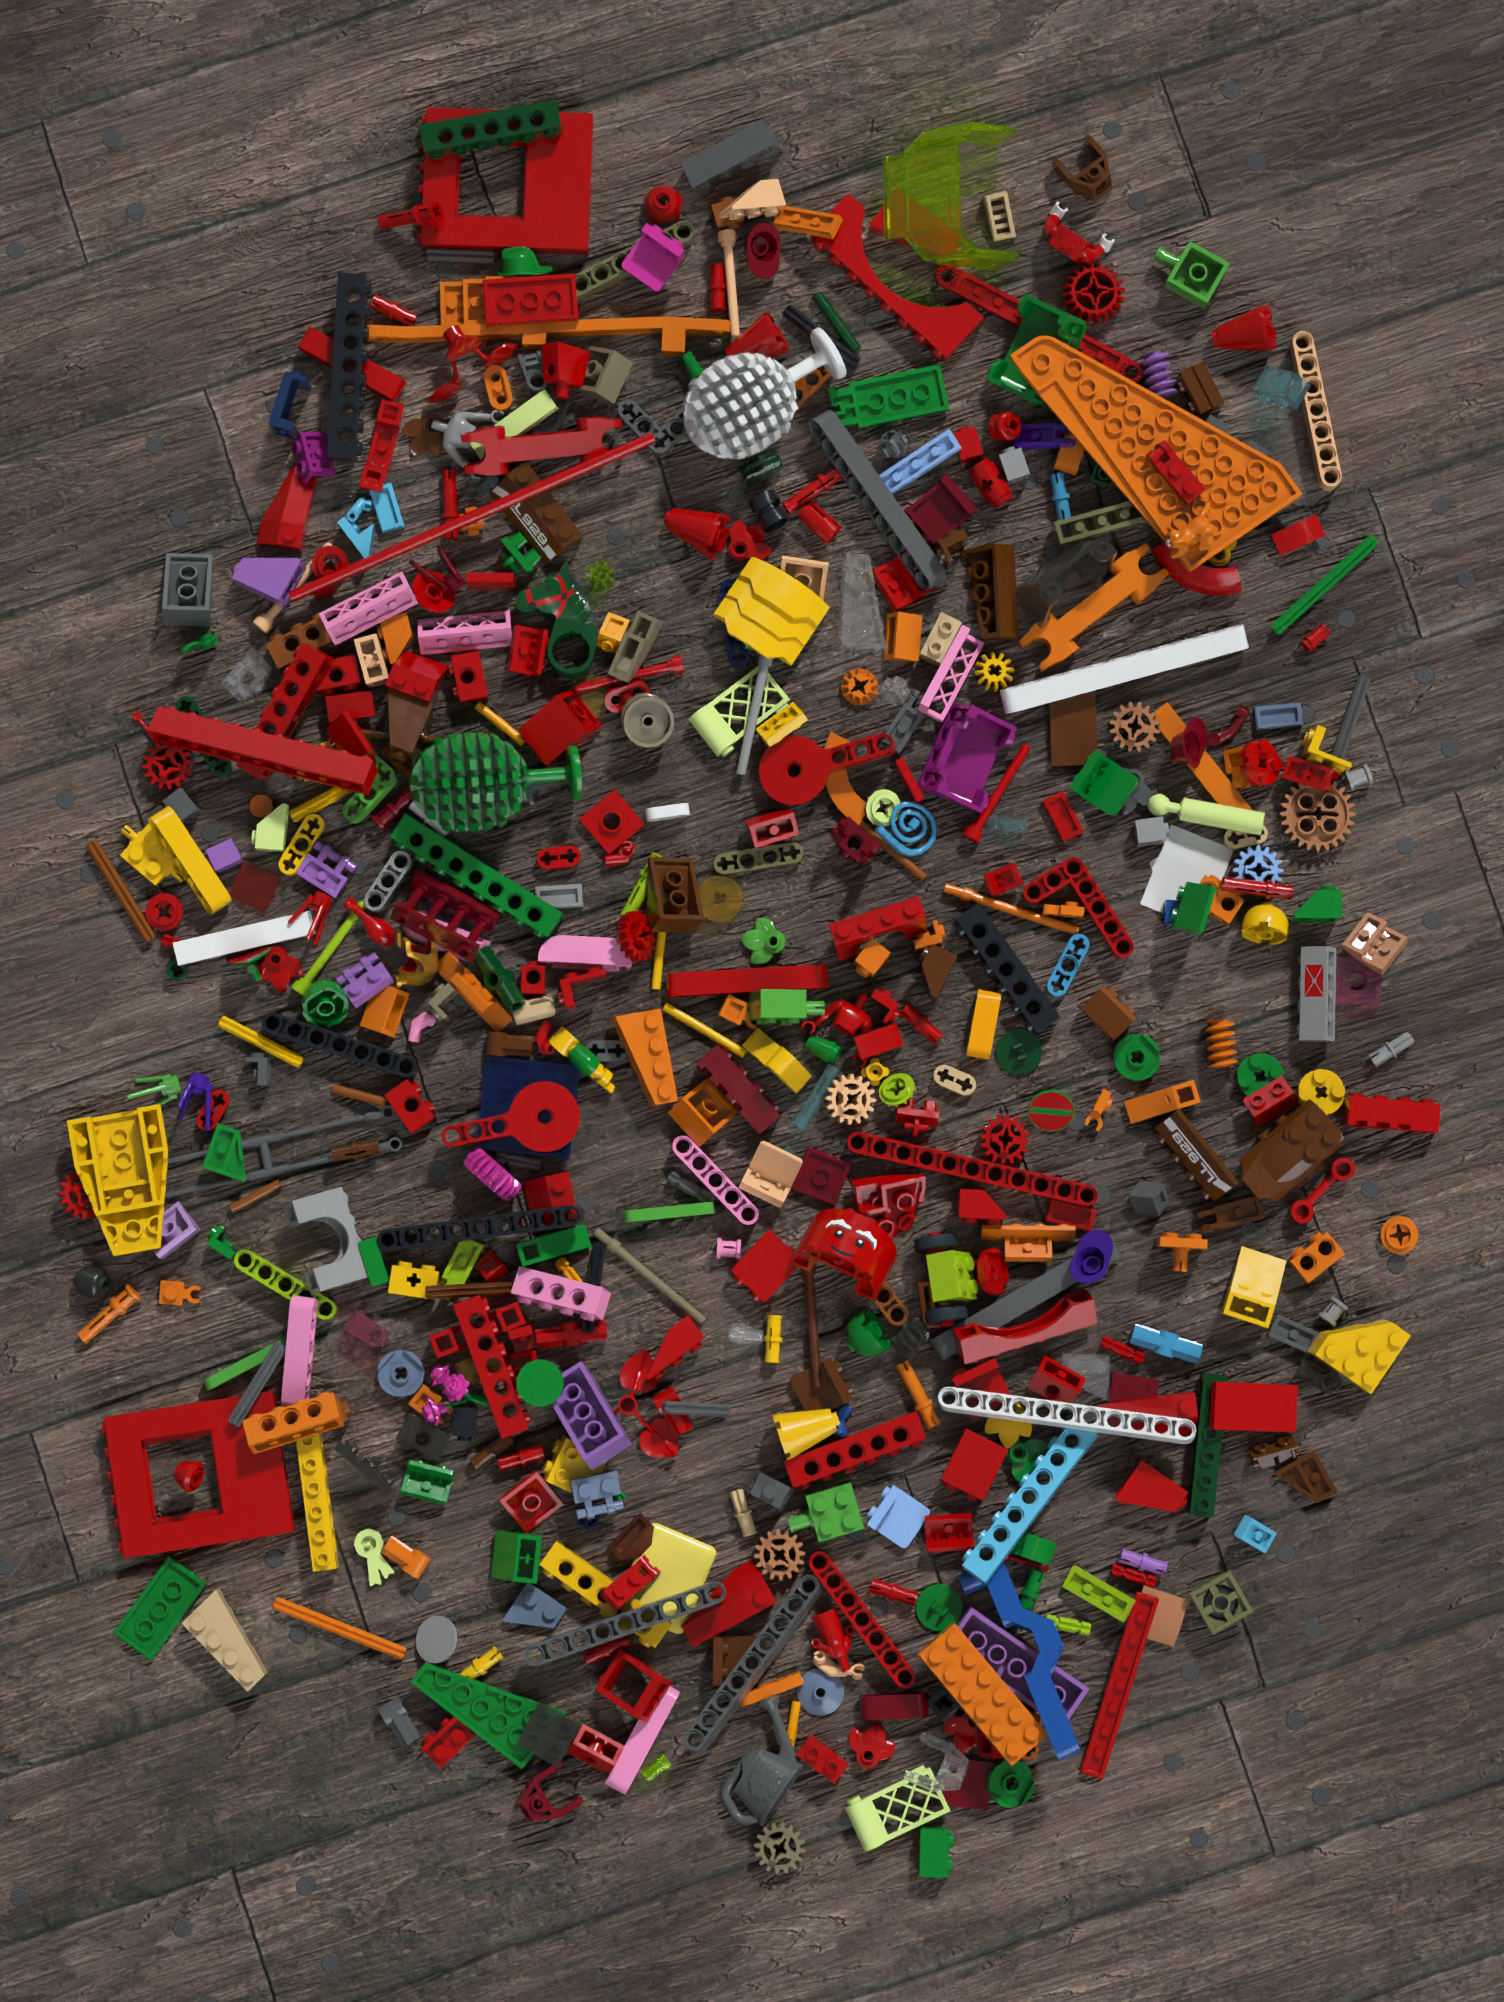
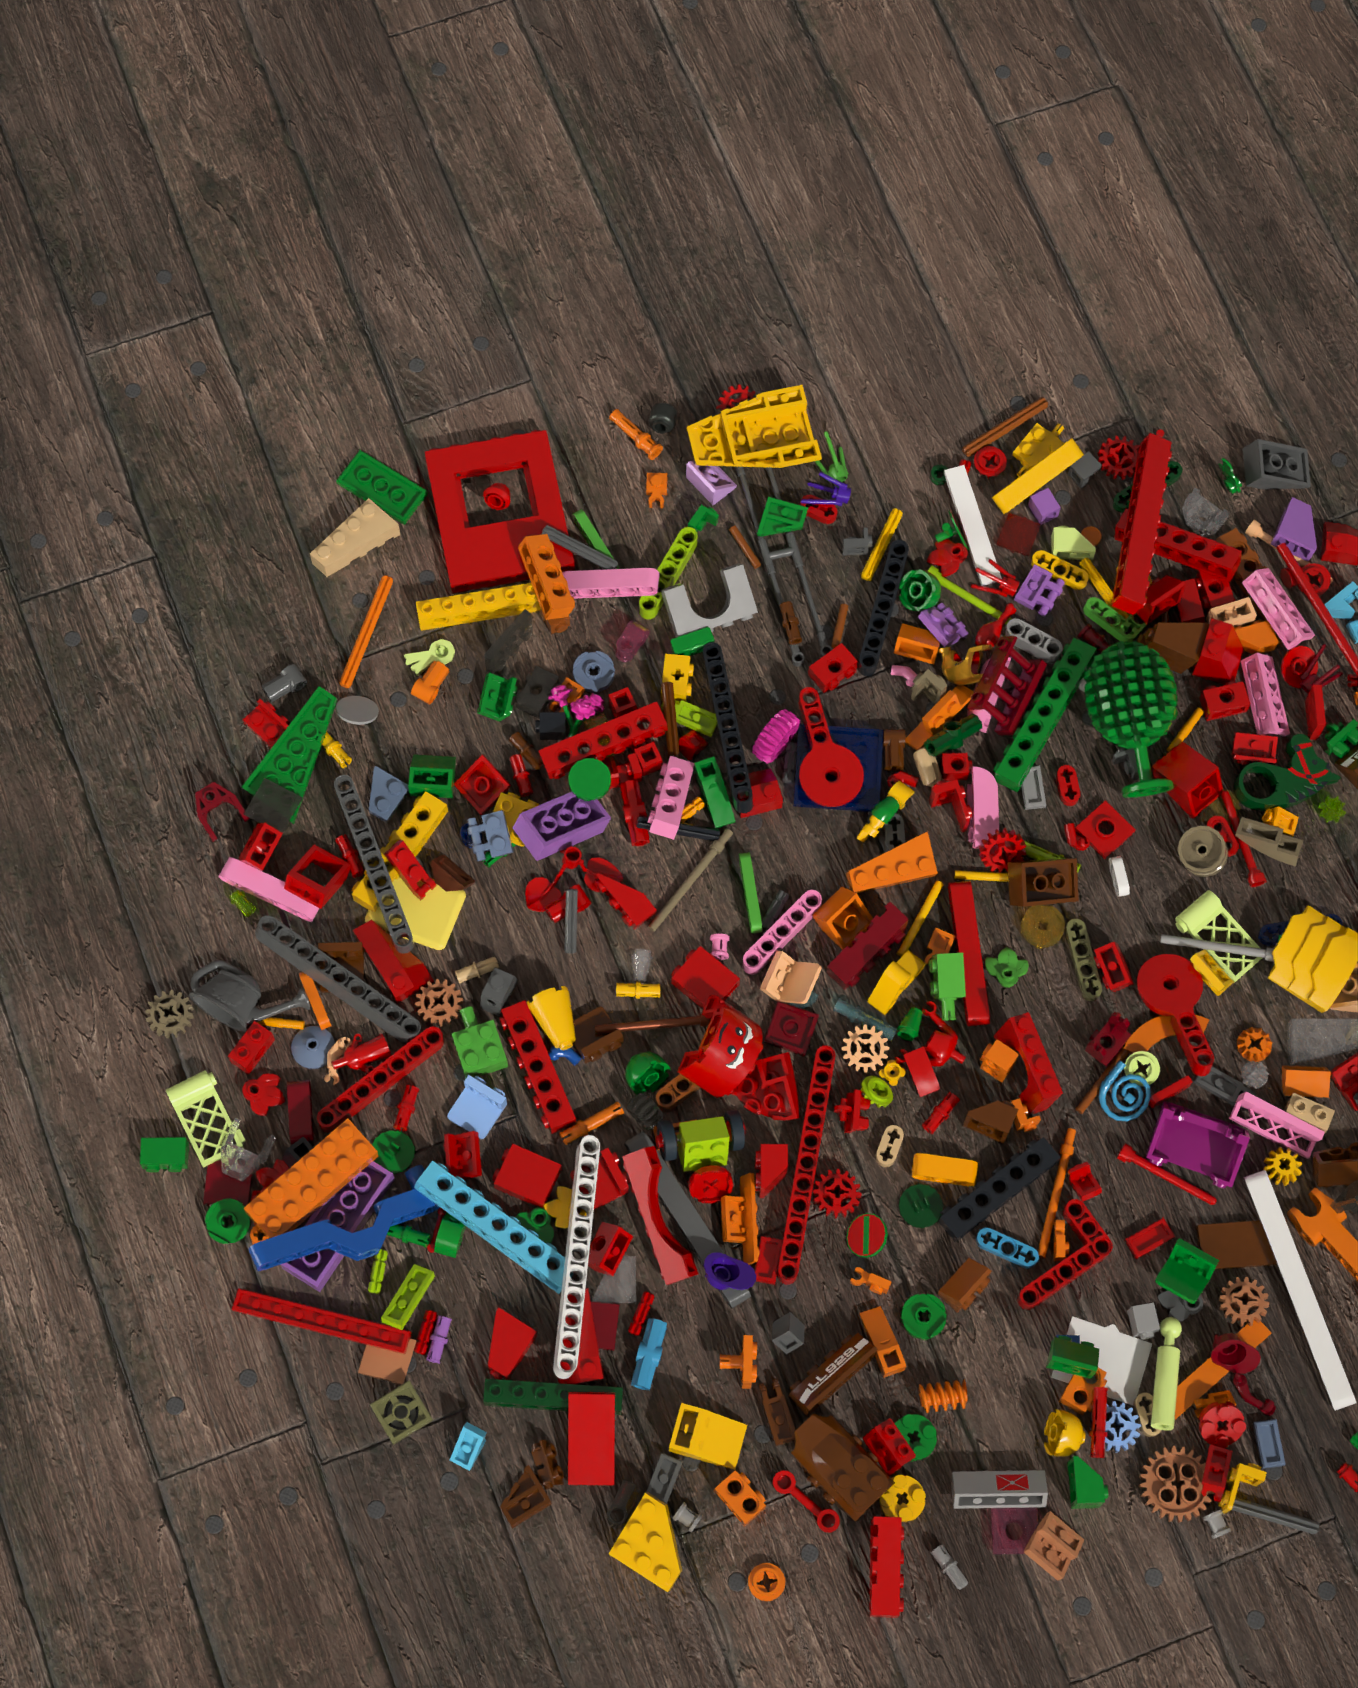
camera: 85 degrees right, 15 degrees down
(884, 998) = (961, 1077): red bracket -> none
(995, 824) = (1136, 1184): clear light blue axle -> none

